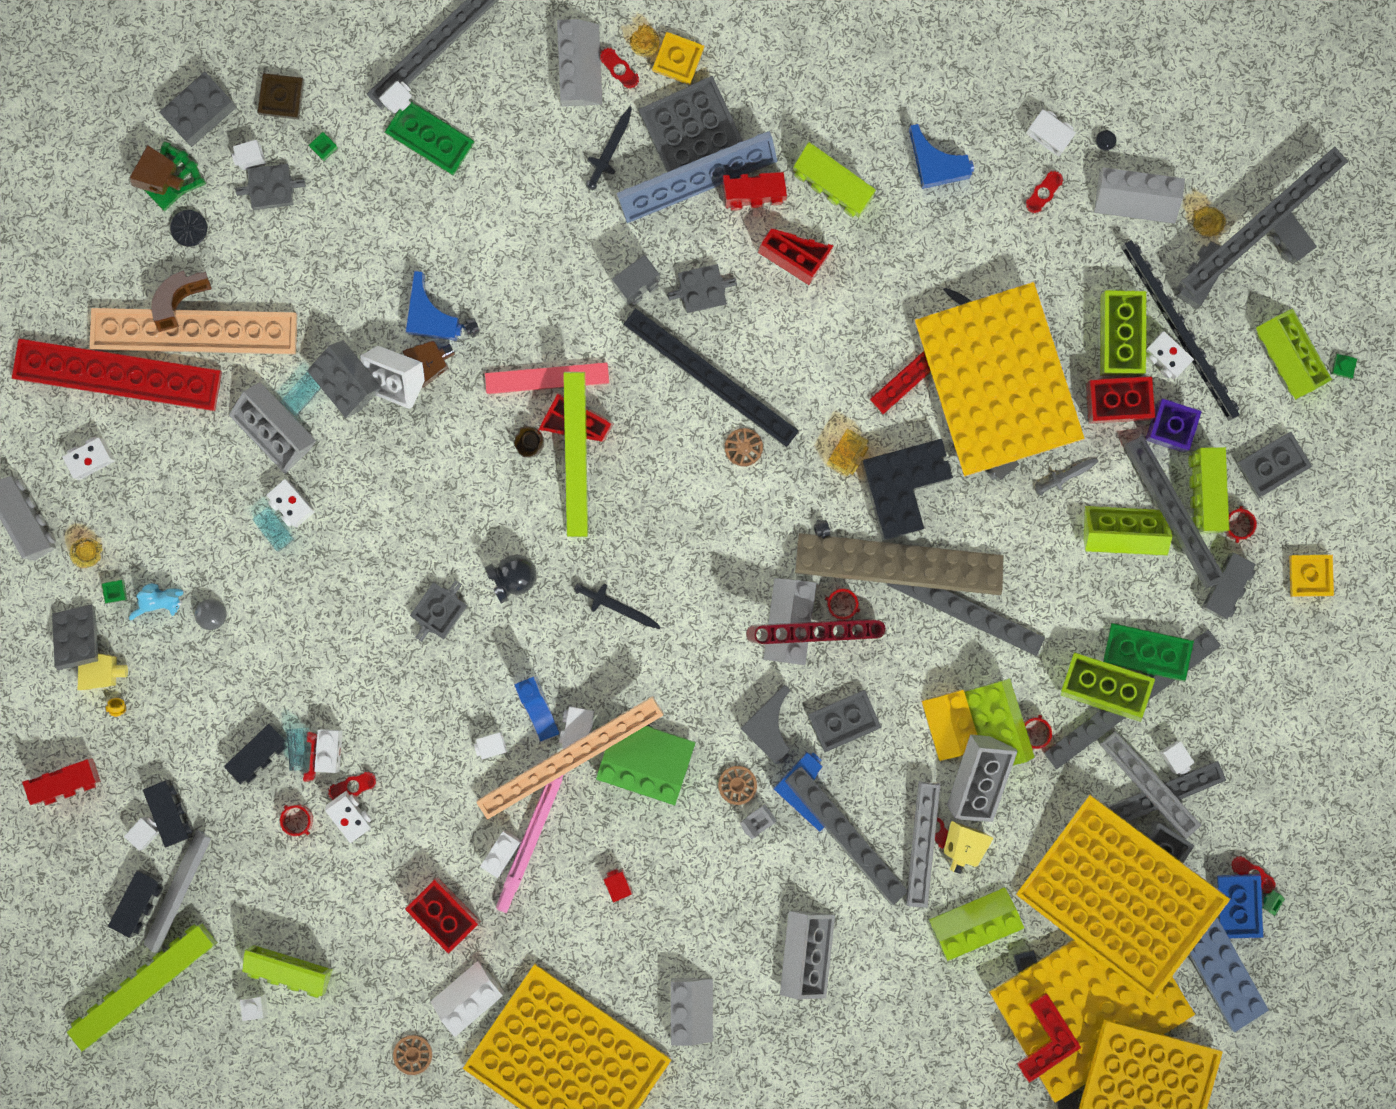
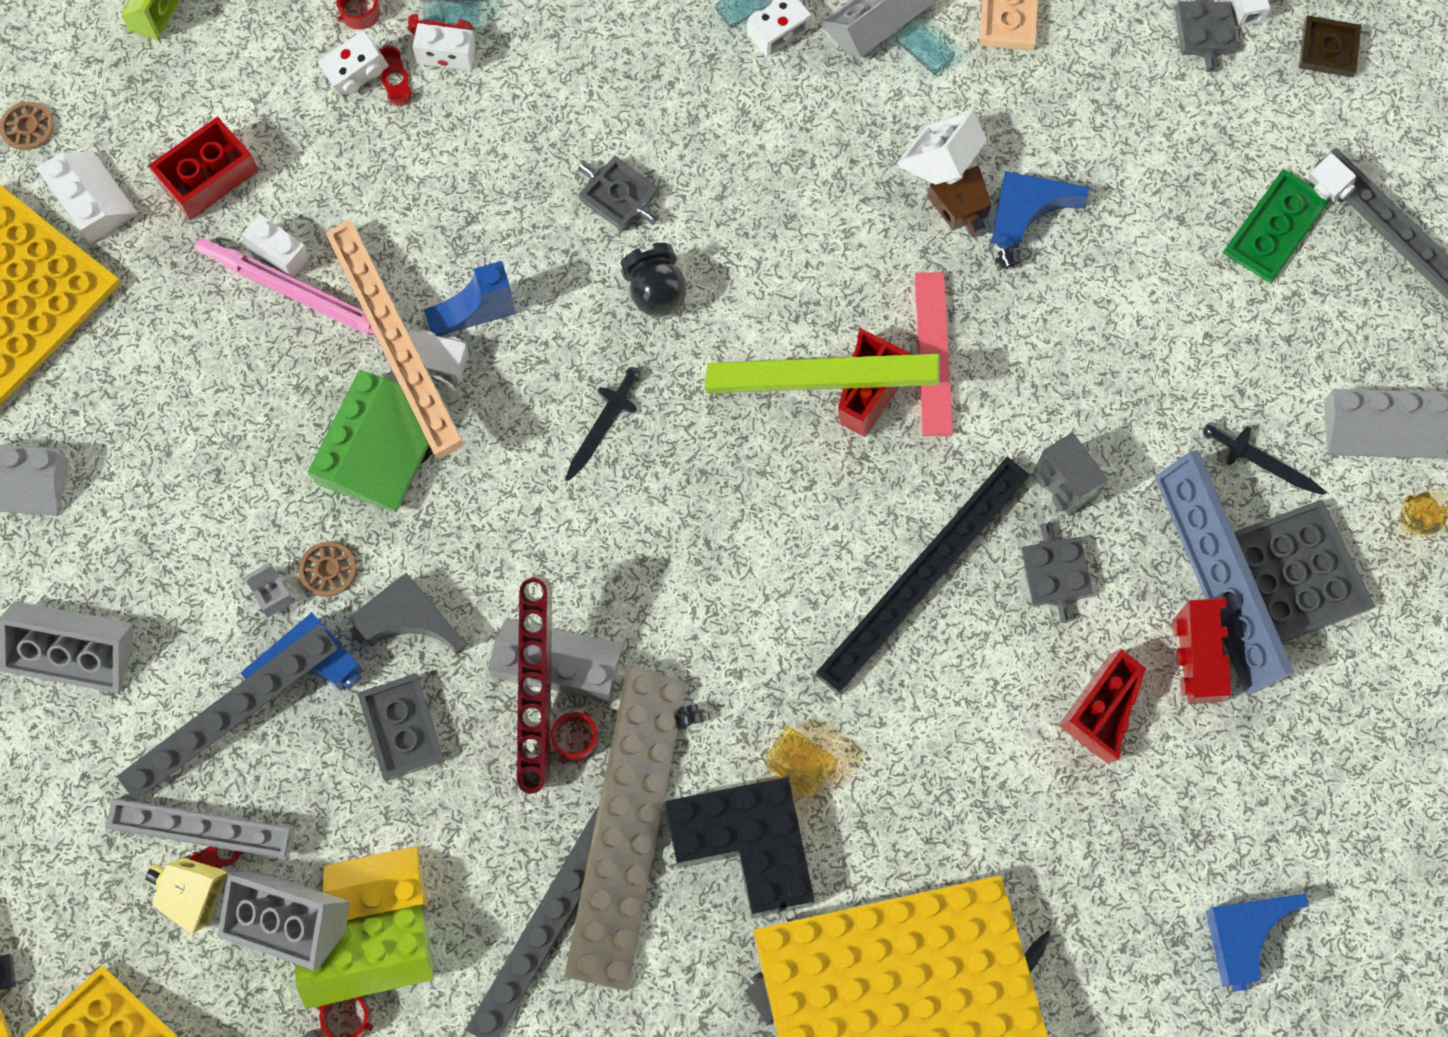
camera: 90 degrees right, 15 degrees down
(323, 146) = (1261, 92): green plate -> none
(344, 378) = (942, 91): dark grey brick -> none
(490, 745) = (425, 245): white brick -> none
(529, 441) = (843, 320): dark brown hair -> none
(610, 60) = (1393, 469): red piece -> none
(617, 885) = (209, 394): red brick -> none
(678, 58) = (1399, 562): yellow plate -> none
(743, 447) = (819, 614): medium nougat wheel -> none
(833, 180) = (1217, 770): lime slope -> none
(901, 384) = (901, 851): red tile -> none
(976, 924) = (66, 900): lime slope -> none

